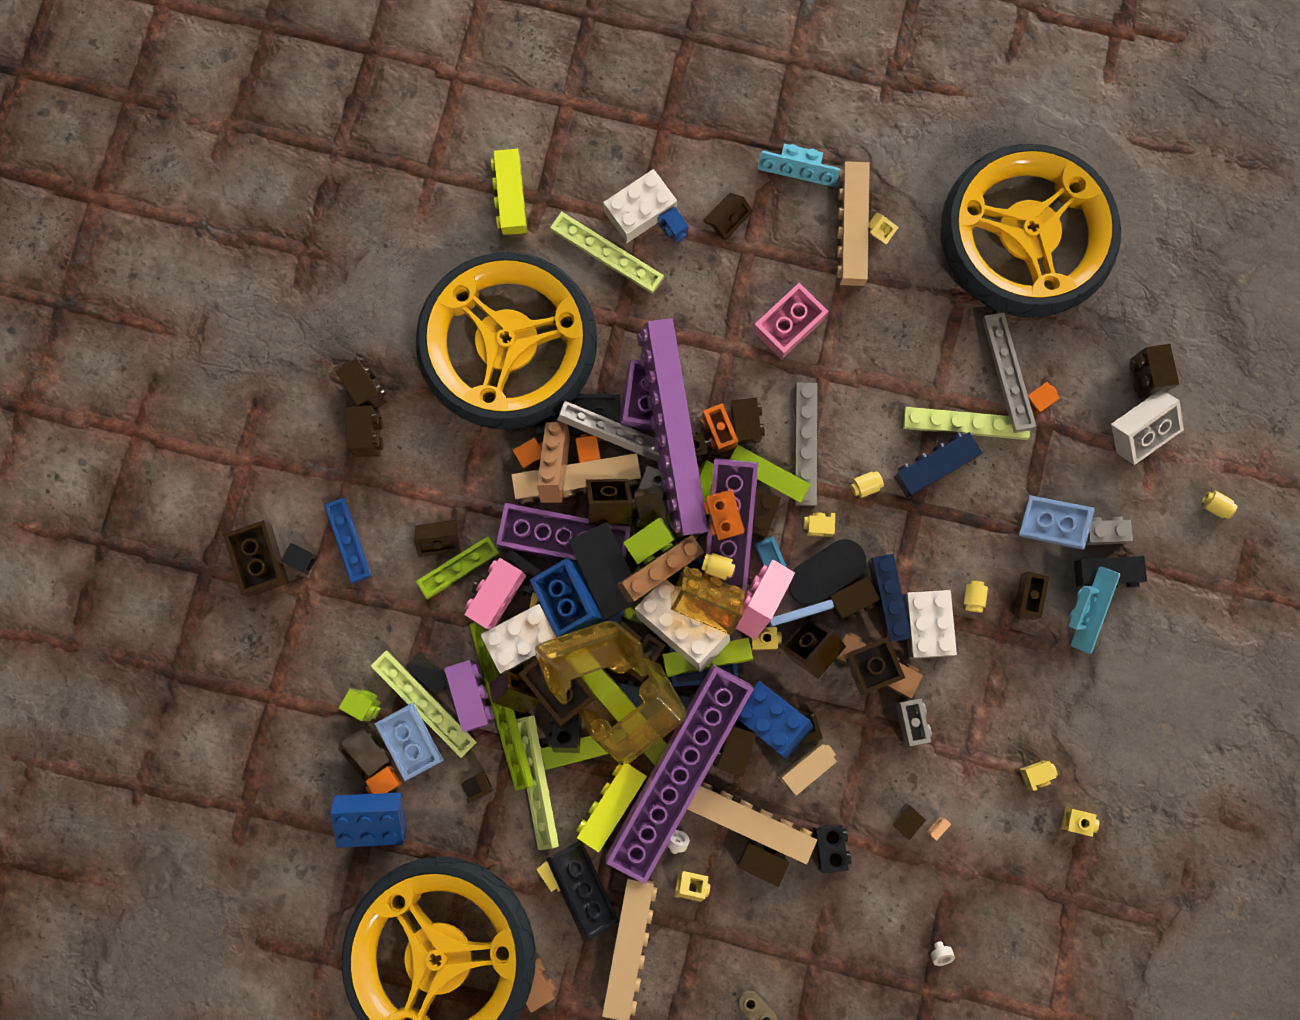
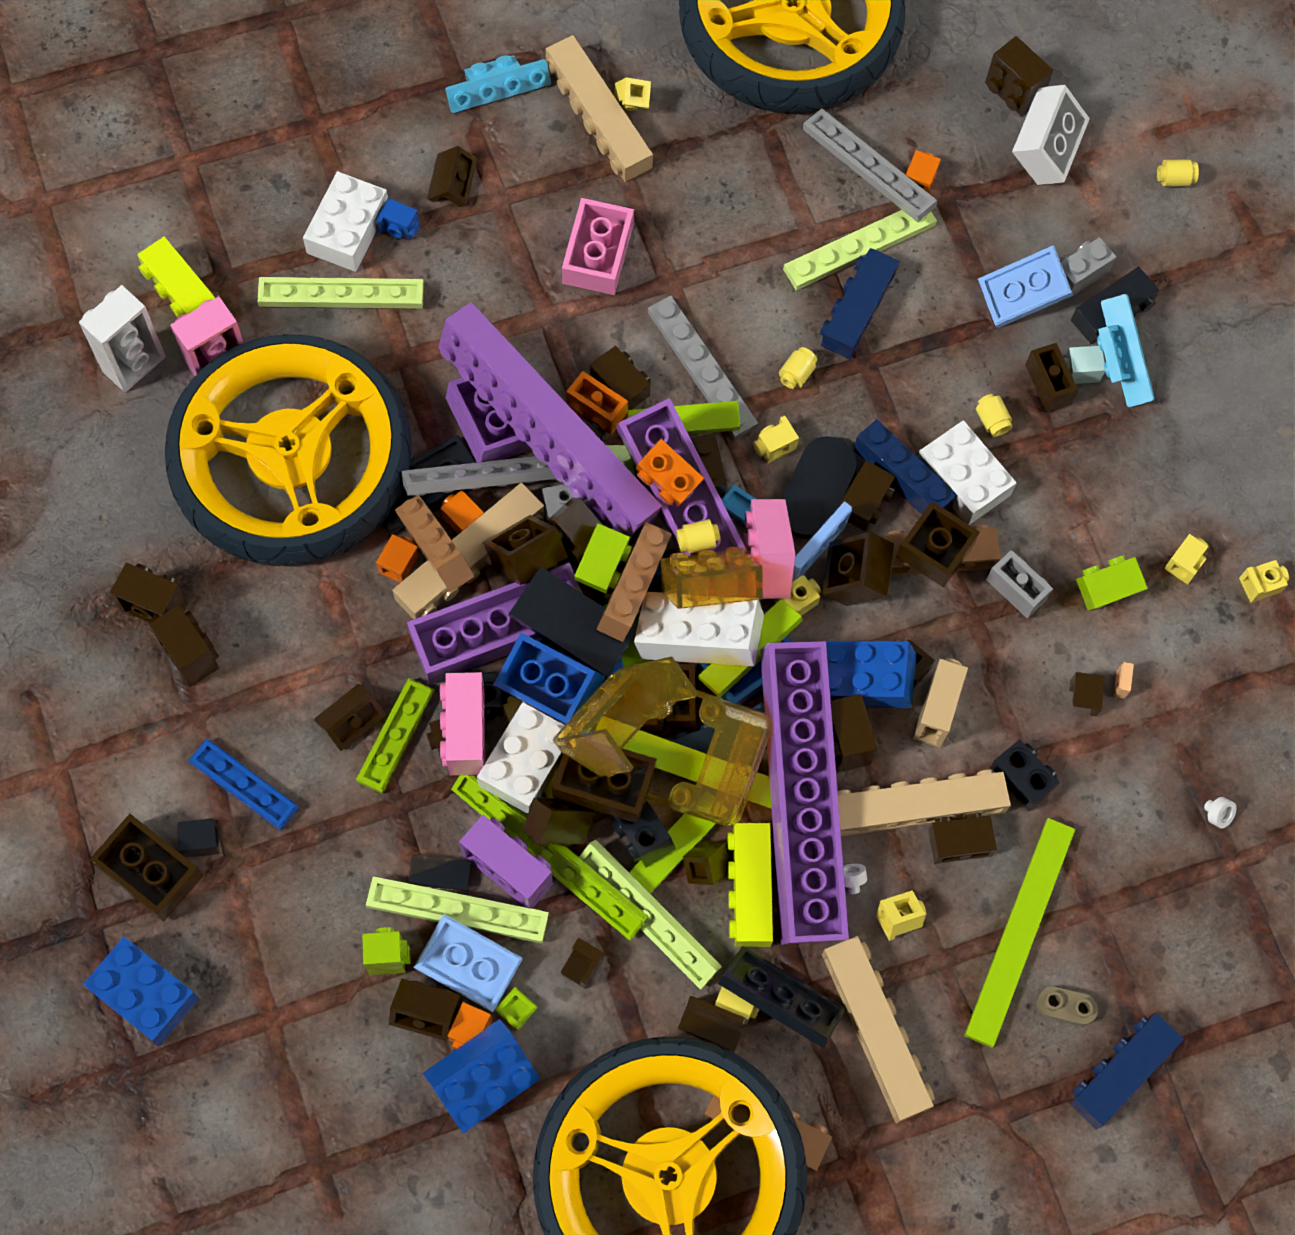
camera: 35 degrees left, 10 degrees down
(207, 633) = (141, 991): none -> blue brick
(420, 788) = (516, 1009): none -> lime tile
(444, 205) = (122, 338): none -> white brick
(498, 234) = (206, 334): none -> bright pink brick
(528, 876) = (712, 1023): none -> dark brown panel
(593, 773) = (706, 862): none -> dark brown panel
(760, 945) = (1019, 933): none -> lime tile
(974, 759) = (1111, 583): none -> lime brick
(1060, 599) = (1085, 364): none -> light aqua brick

